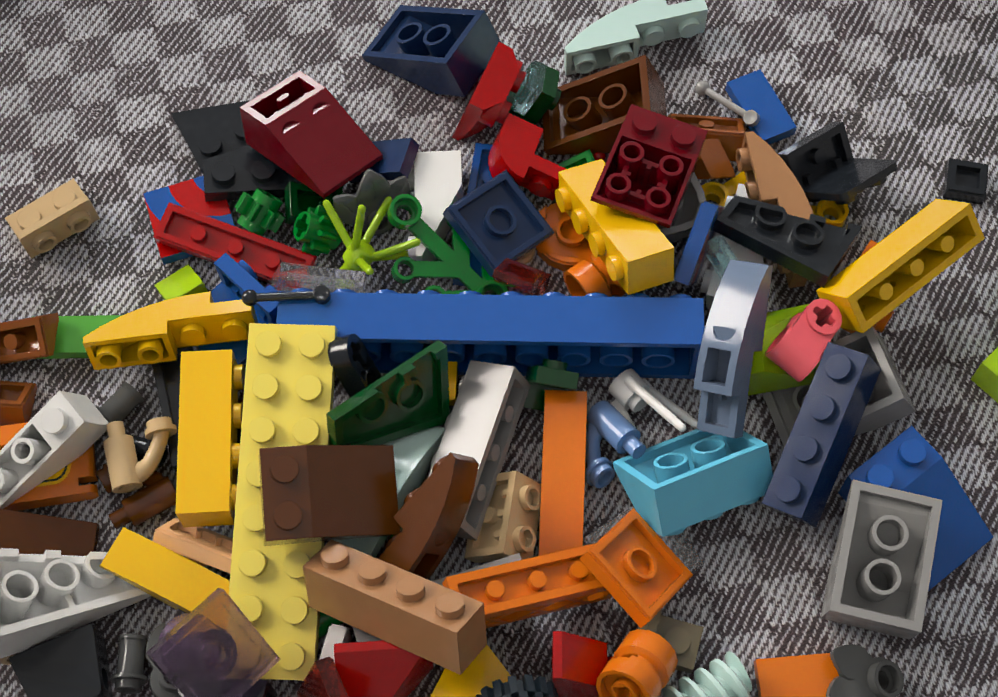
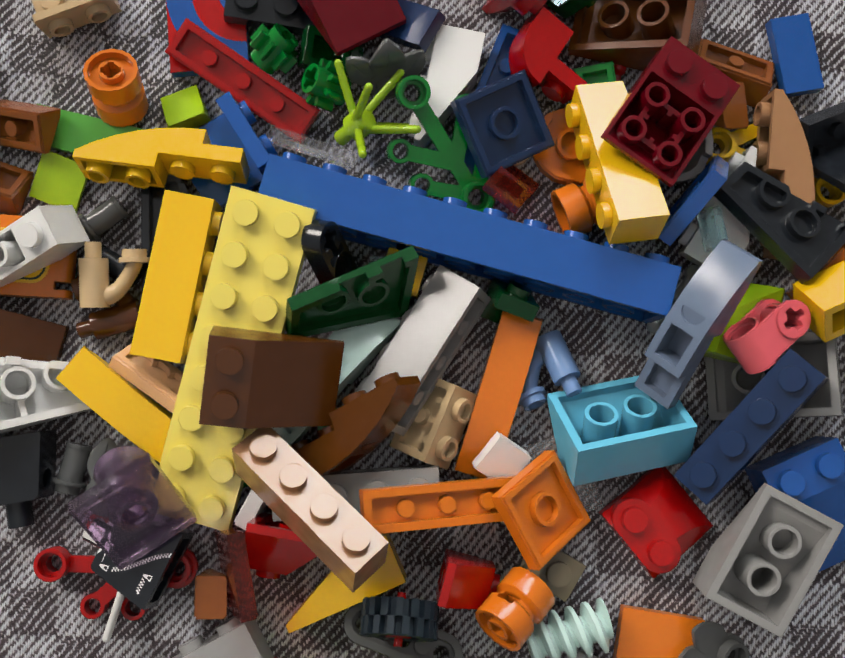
camera: 10 degrees right, 20 degrees up
(66, 376) = (58, 181): none -> lime piece
(111, 279) = (116, 87): none -> orange wheel
(320, 294) = (308, 168): black hinge -> none
(581, 529) = (501, 457): none -> white tile
(635, 393) = (587, 328): white plant -> none
(750, 117) = (782, 66): light grey hinge -> none
(762, 565) = (656, 521): none -> red slope

